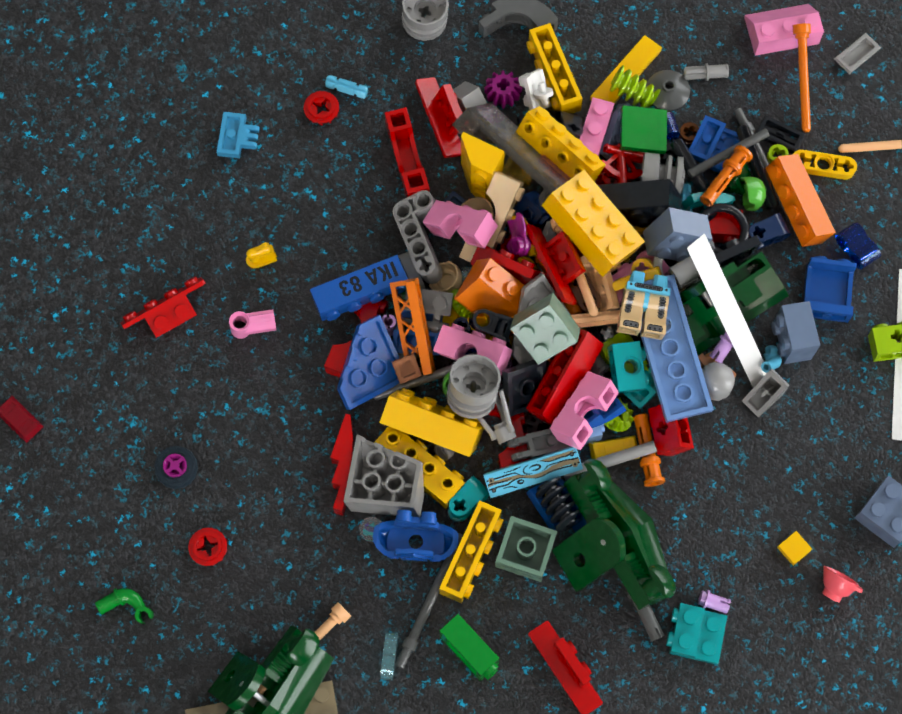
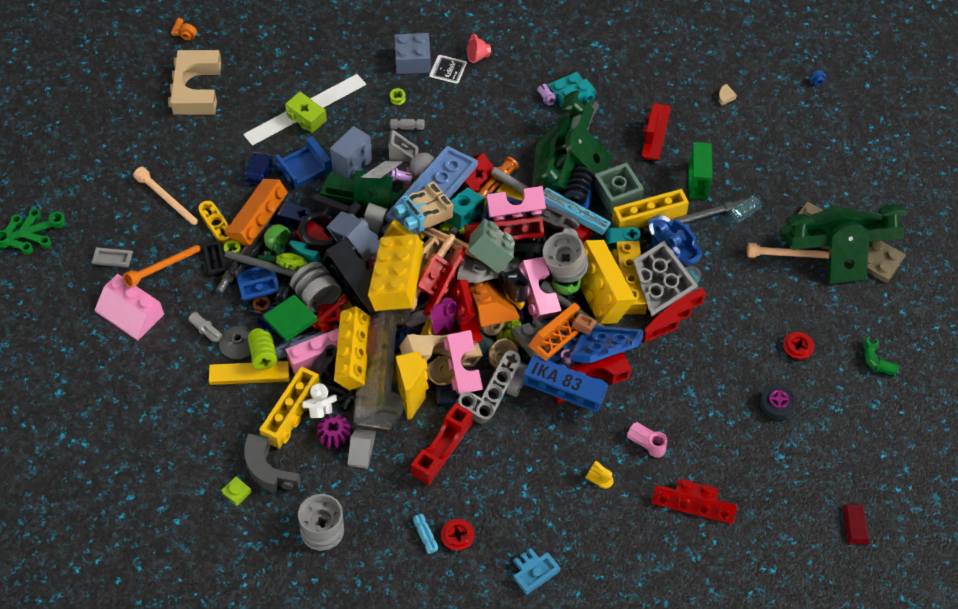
camera: 135 degrees left, 15 degrees down
(442, 110) = (387, 451): red bracket -> none
(709, 166) = (291, 261): none -> lime gear
(731, 168) = (274, 248): orange pin -> none
(772, 359) = (378, 158): medium azure arm -> none
(794, 548) = (477, 83): yellow tile -> none
(797, 429) = (407, 124): none -> light grey axle
(843, 539) = (448, 69): none -> sticker
(844, 460) = (396, 92): none -> lime bush

